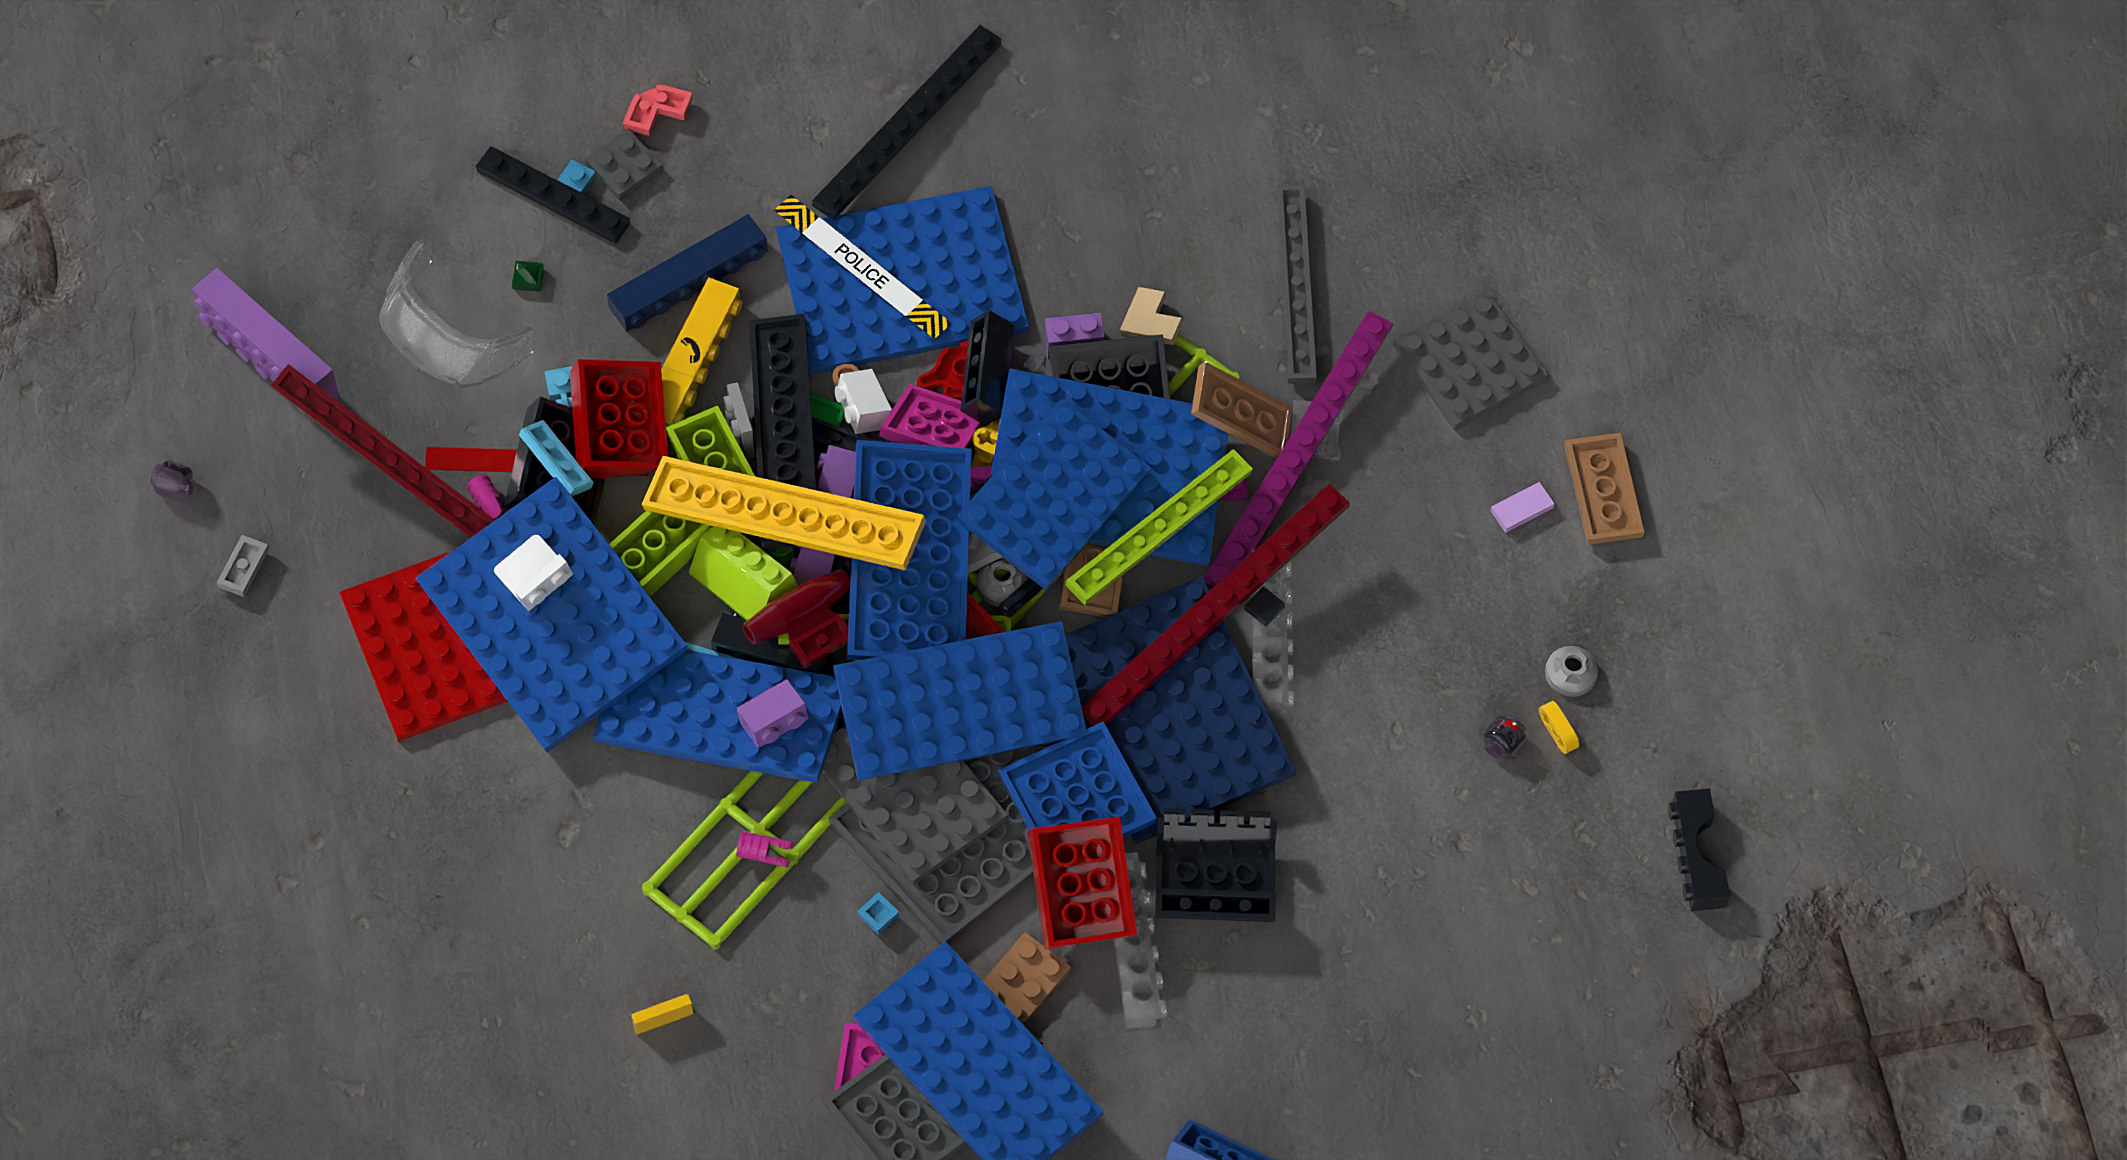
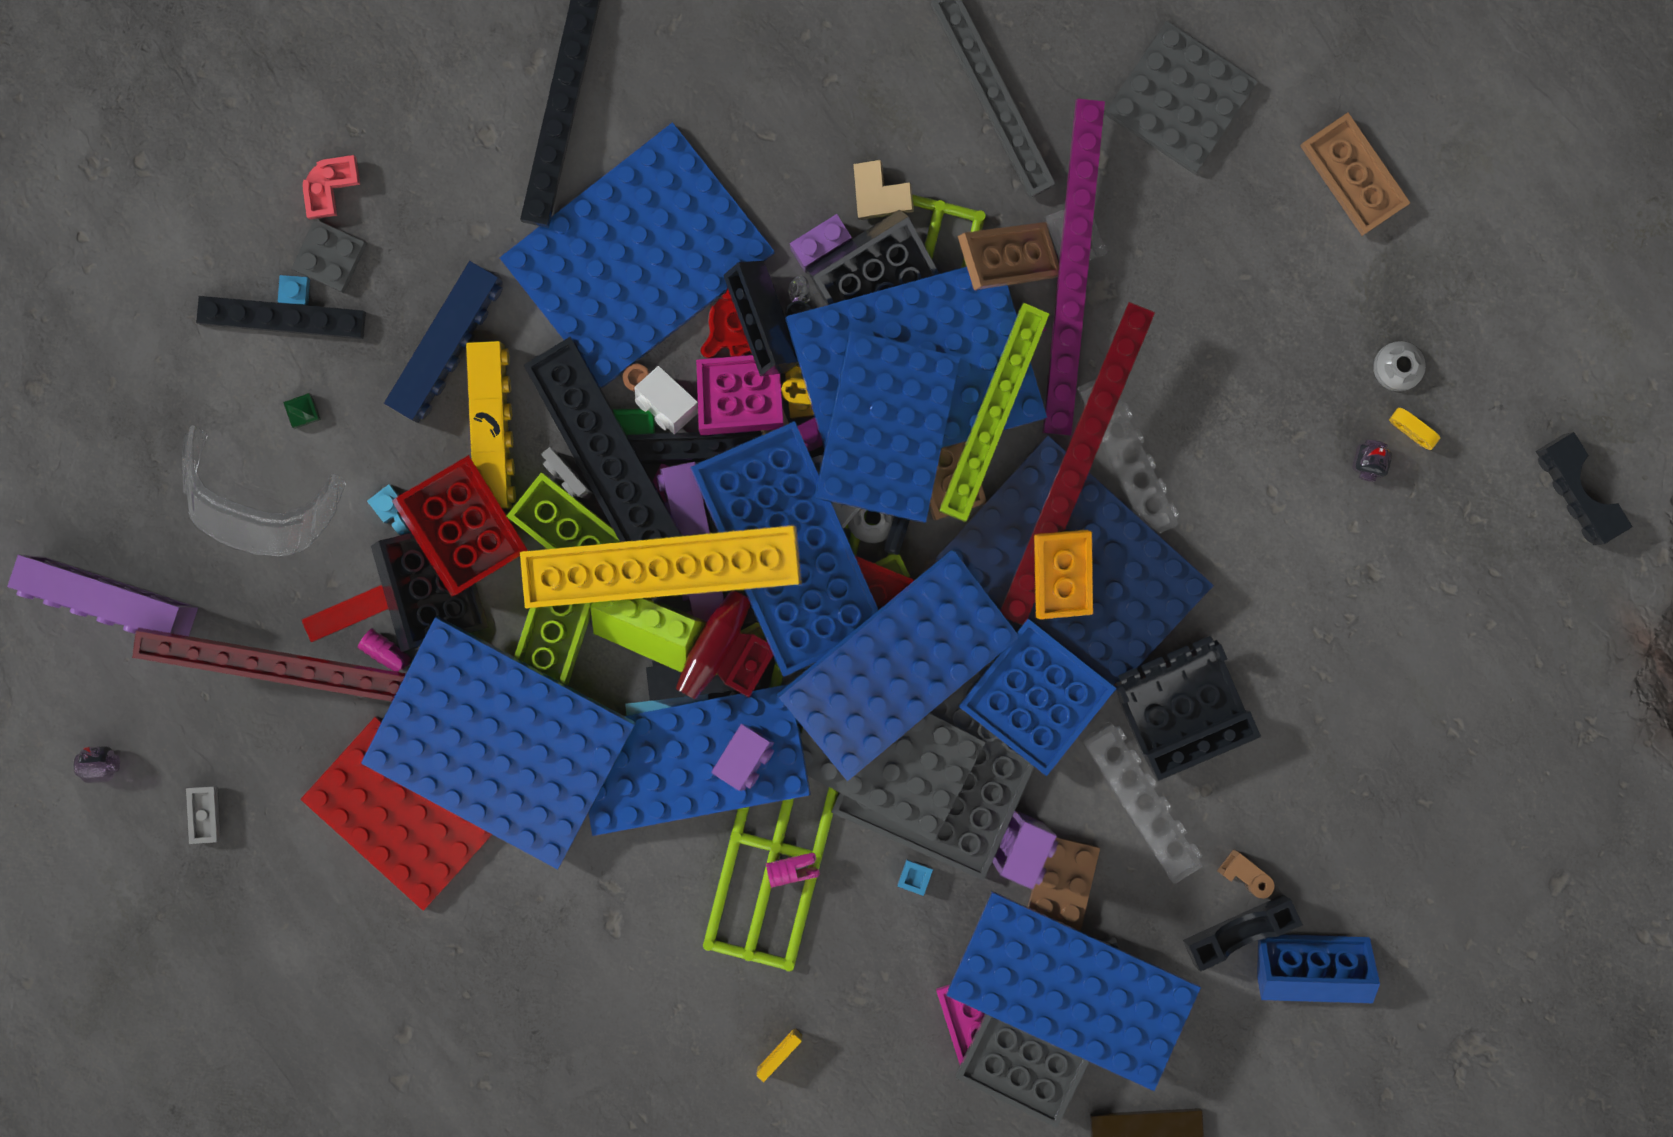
camera: 20 degrees left, 25 degrees up
(533, 572) = (464, 723): white bracket -> none
(556, 457) = (425, 597): medium azure tile -> none
(862, 266) = (597, 262): sticker -> none
(994, 908) = (1025, 850): none -> medium lavender brick
(1082, 882) = (1084, 786): red slope -> none
(1155, 692) = (1063, 574): none -> light orange plate
(1200, 1101) = (1260, 922): none -> black arch
(1204, 1052) = (1255, 879): none -> medium nougat leg
(1264, 606) = (1117, 440): black tile -> none
(1522, 507) = (1290, 225): lavender tile -> none

